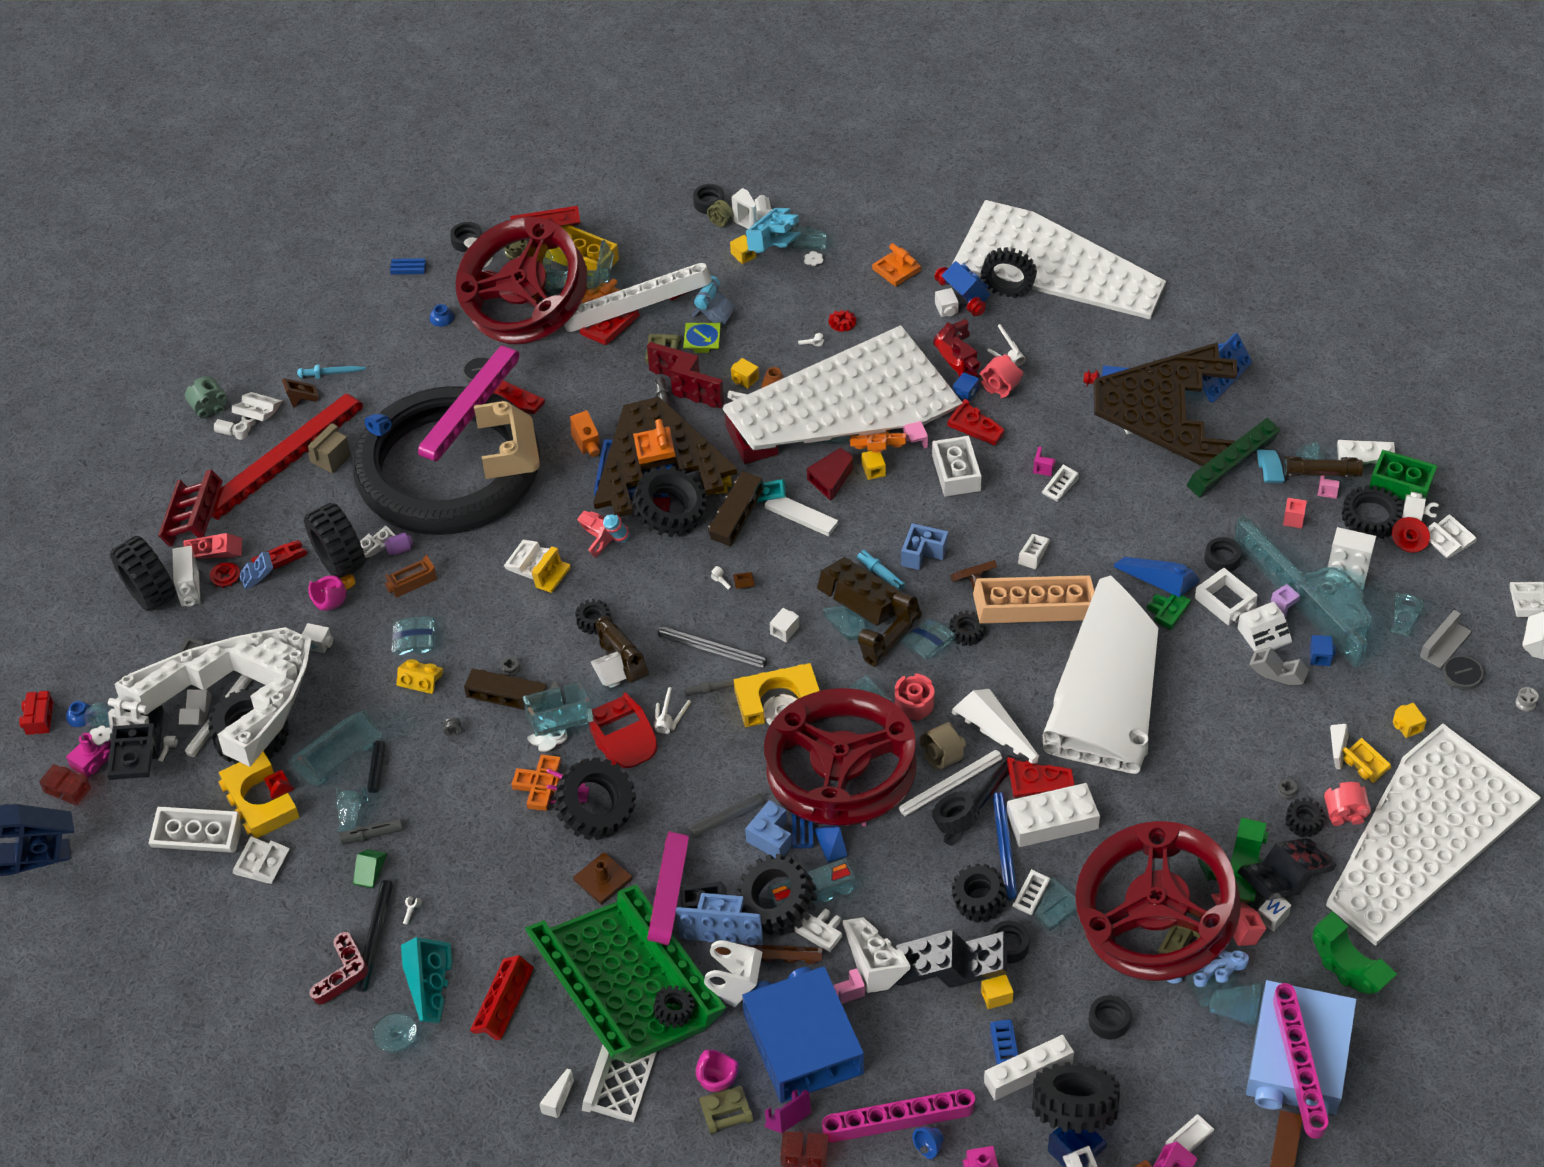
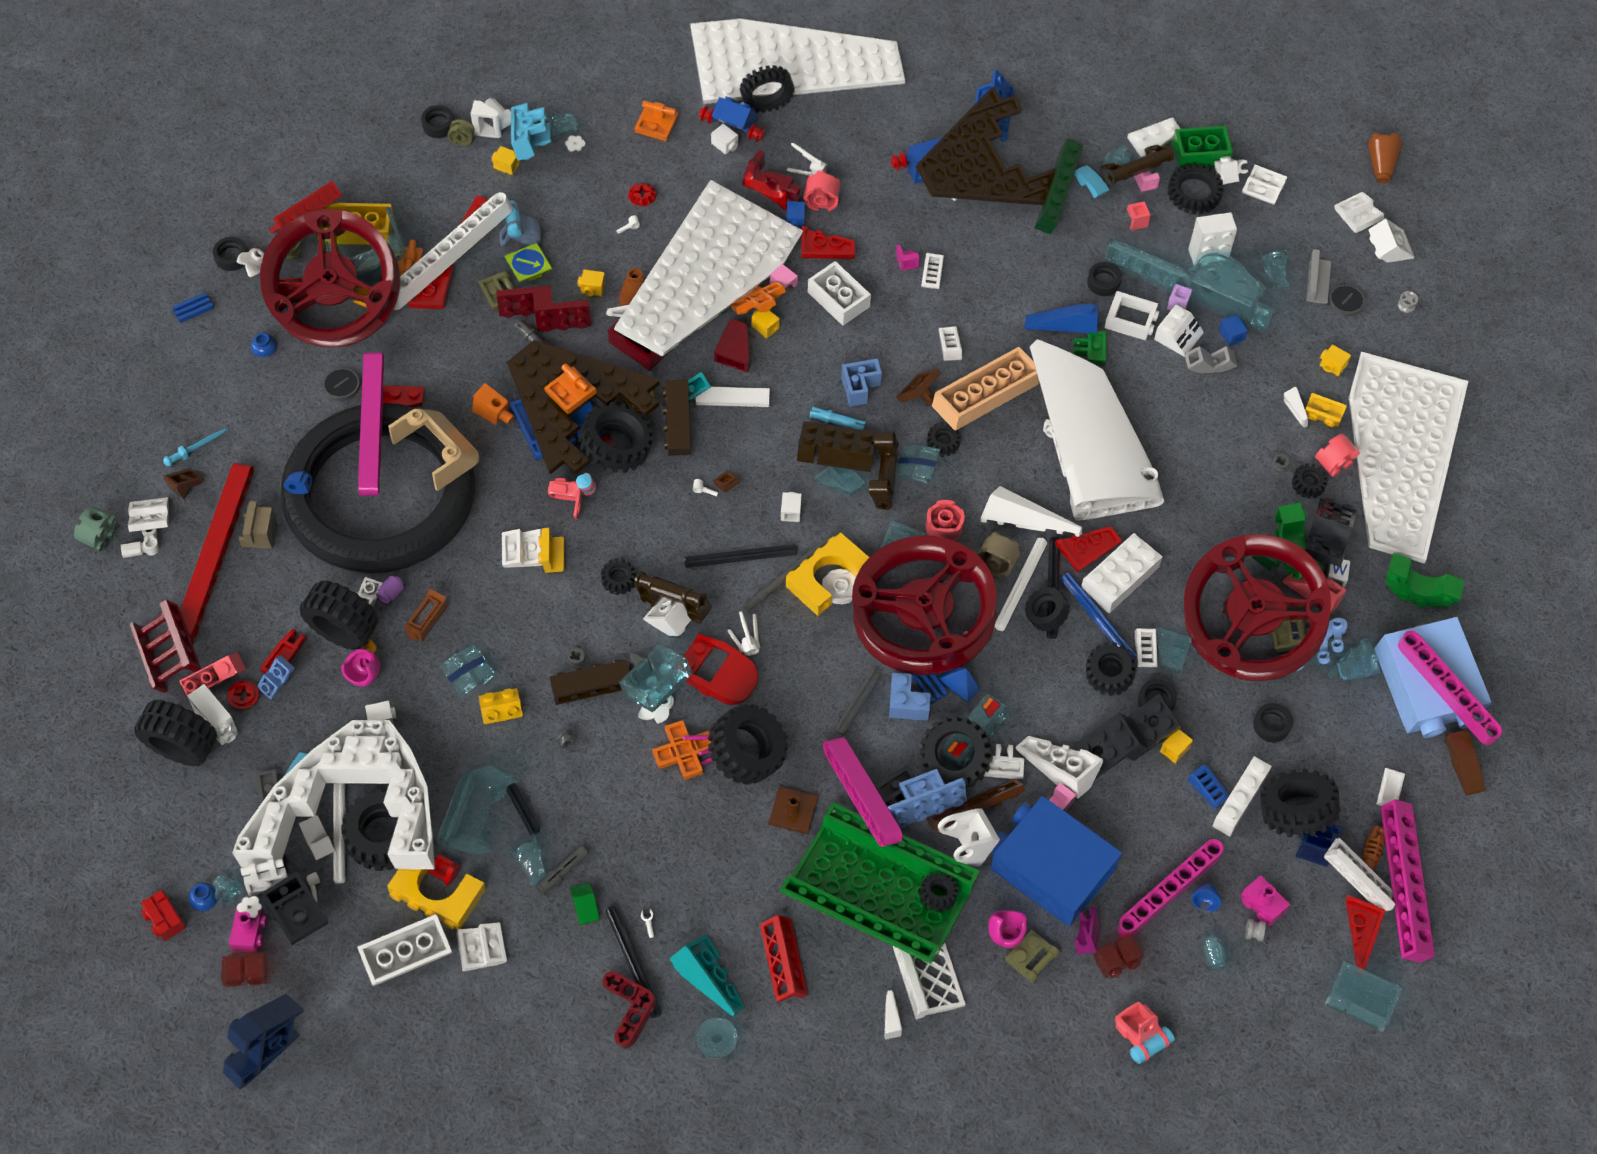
camera: 35 degrees left, 10 degrees up
(1415, 529) = (1241, 192): red dish -> none

